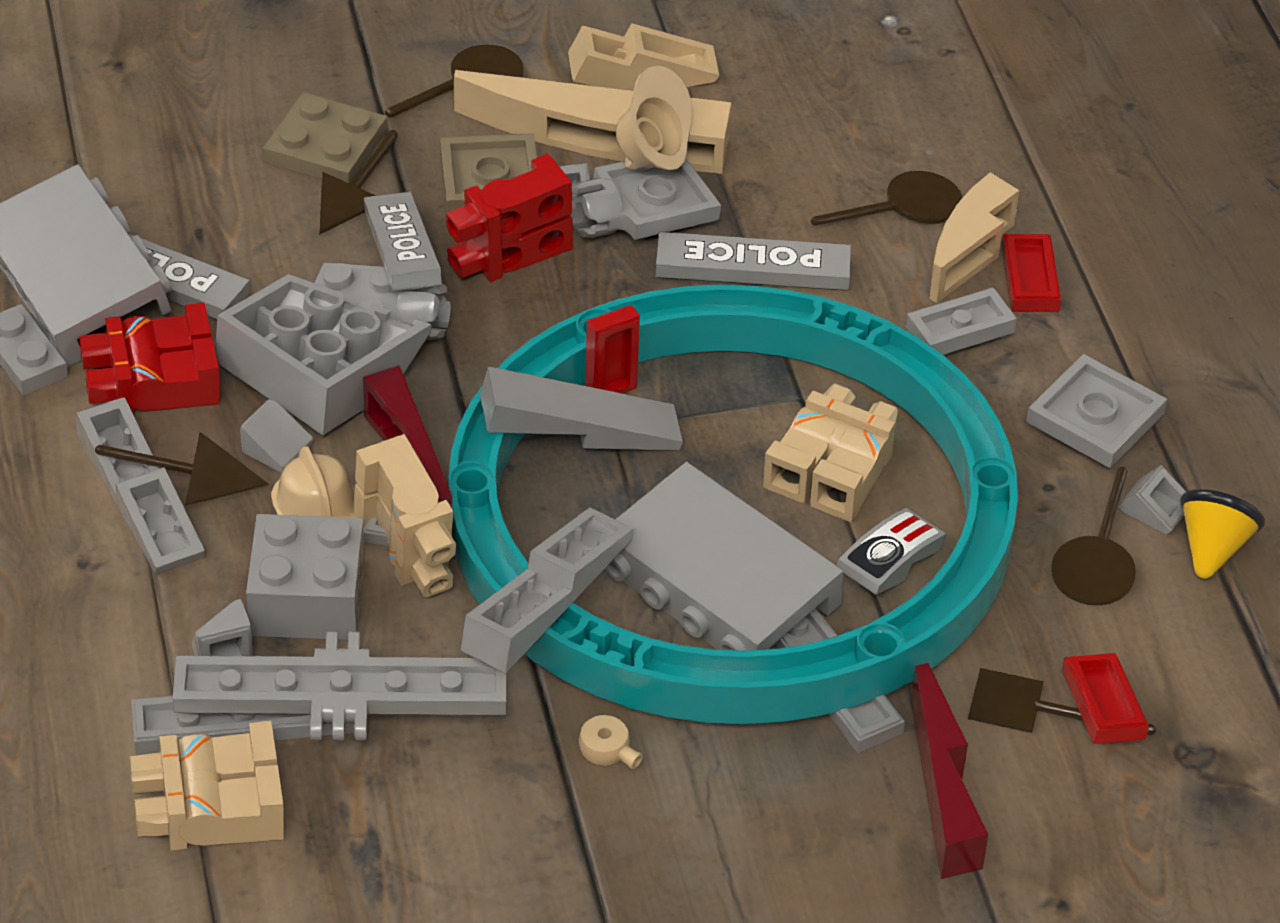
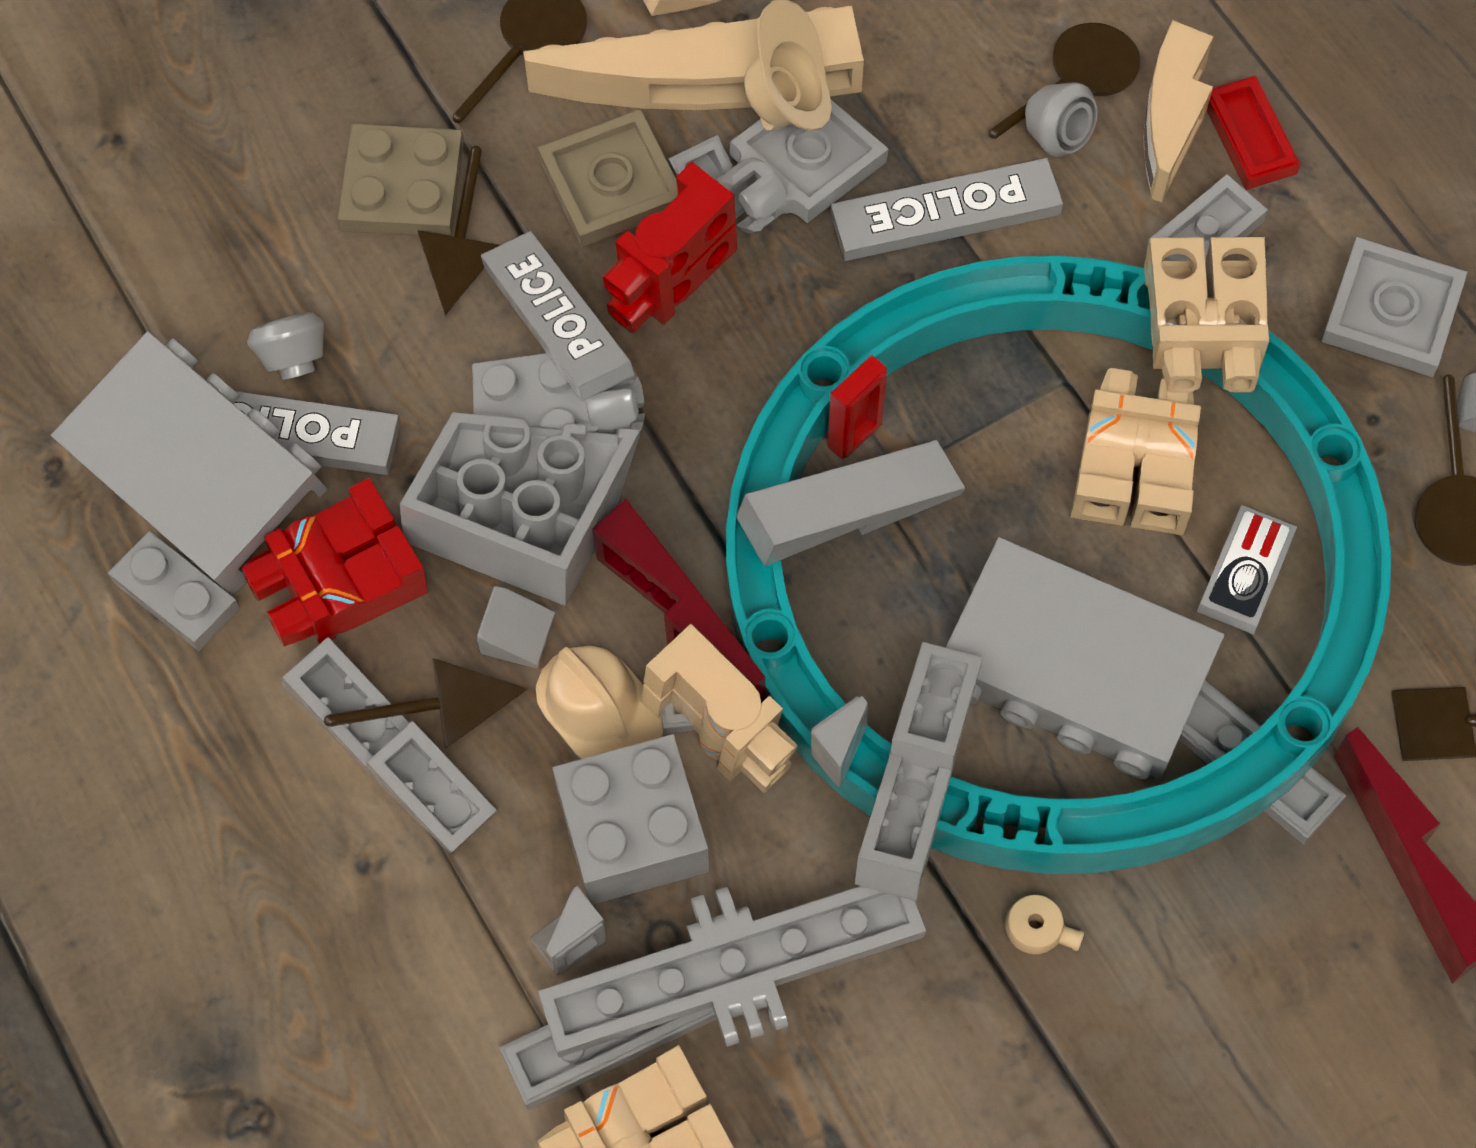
camera: 15 degrees left, 20 degrees up
(185, 212) = (289, 344): none -> light grey cone
(492, 544) = (838, 738): none -> light grey slope
(874, 219) = (1061, 117): none -> light grey cone
(921, 352) = (1210, 331): none -> tan hips

